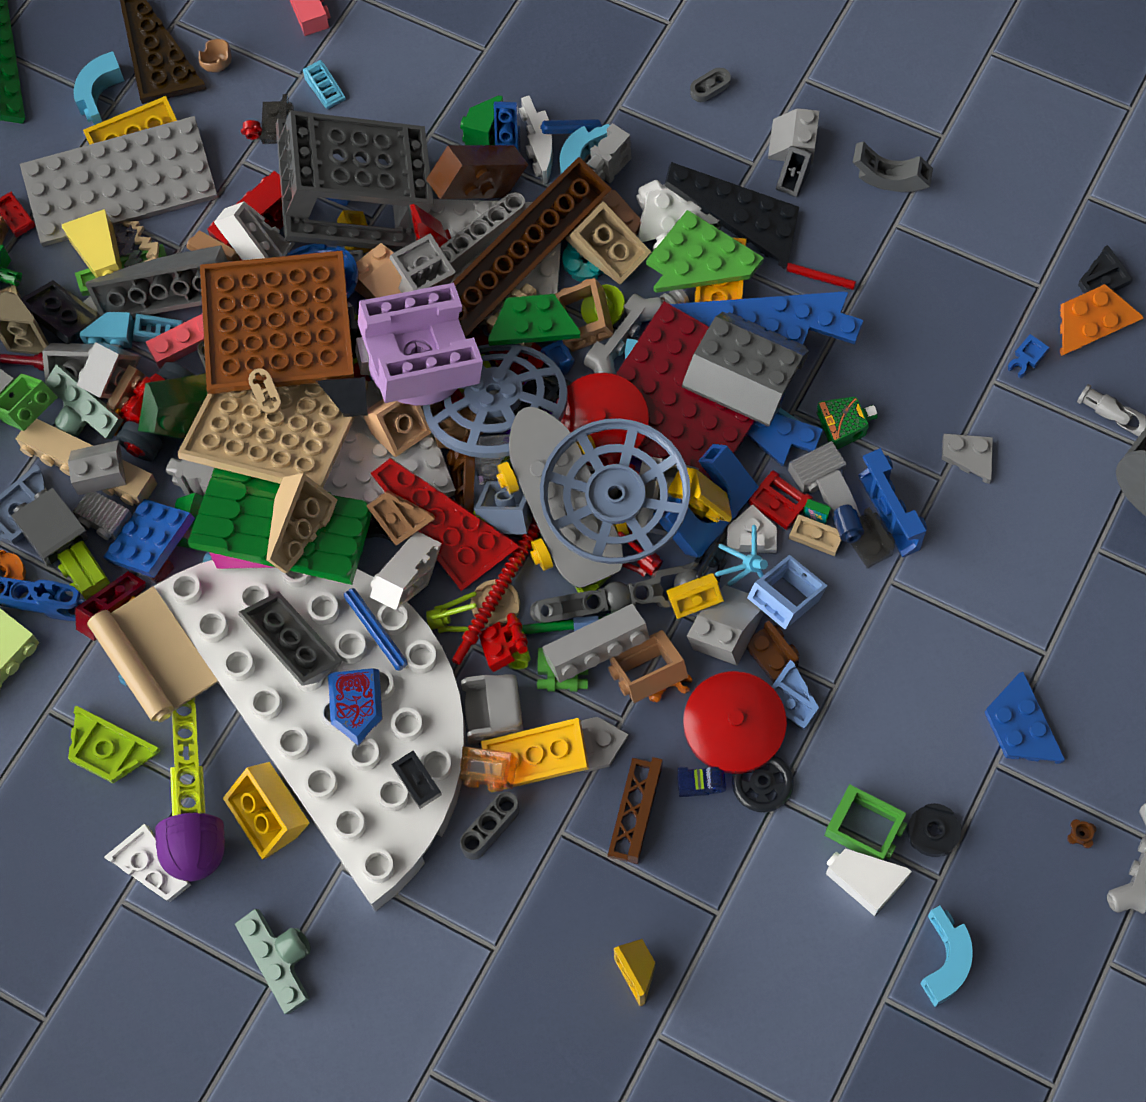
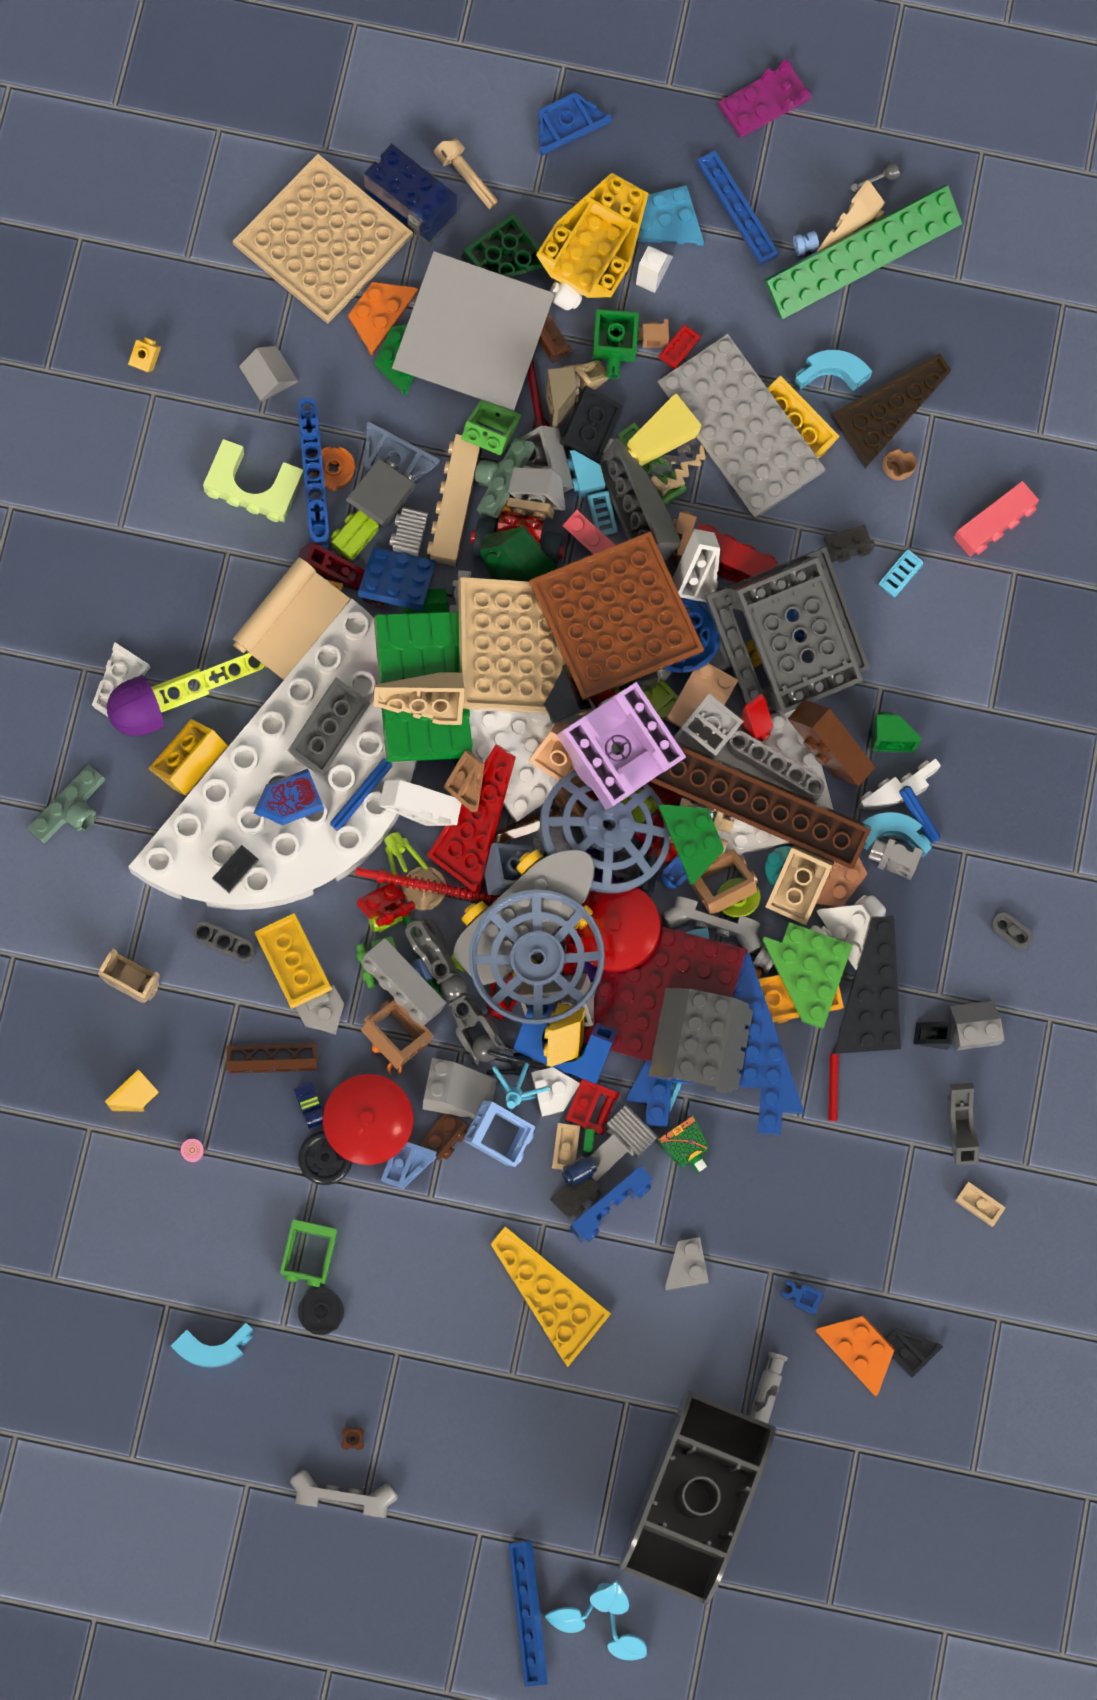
camera: 60 degrees right, 10 degrees up
(96, 468) = (446, 511): light grey slope -> none
(106, 748) = (206, 610): lime wing -> none
(251, 129) = (831, 524): red plate -> none
(259, 393) = (538, 626): tan beam -> none
(487, 768) = (267, 925): clear orange window -> none
(492, 706) = (326, 915): light grey piece -> none
(501, 935) = (129, 977): none -> tan piece
(507, 124) = (887, 757): blue slope -> none
(695, 595) = (471, 1054): yellow slope -> none
(715, 924) = (192, 1150): none -> bright pink tile
(866, 878) = (262, 1264): white slope -> none
(972, 179) = (980, 1204): none -> tan plate
(981, 586) = (558, 1304): none -> yellow wing
(1021, 724) = (438, 1366): blue wing -> none

